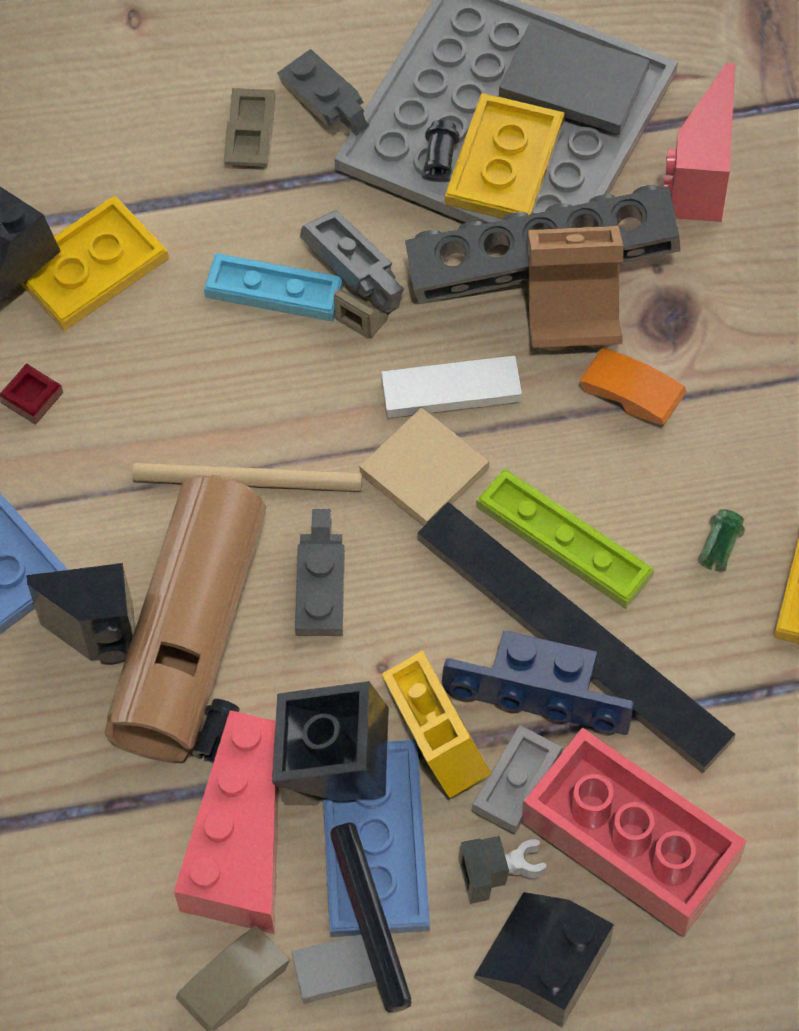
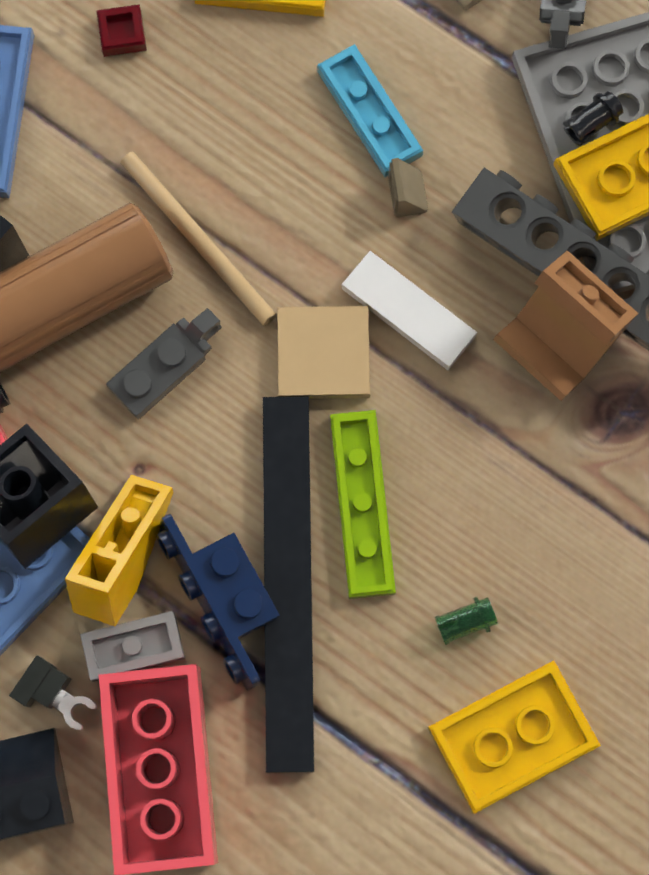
camera: 45 degrees right, 15 degrees up
(354, 259) = (444, 142): dark grey hinge -> none
(636, 385) = (535, 440): orange slope -> none

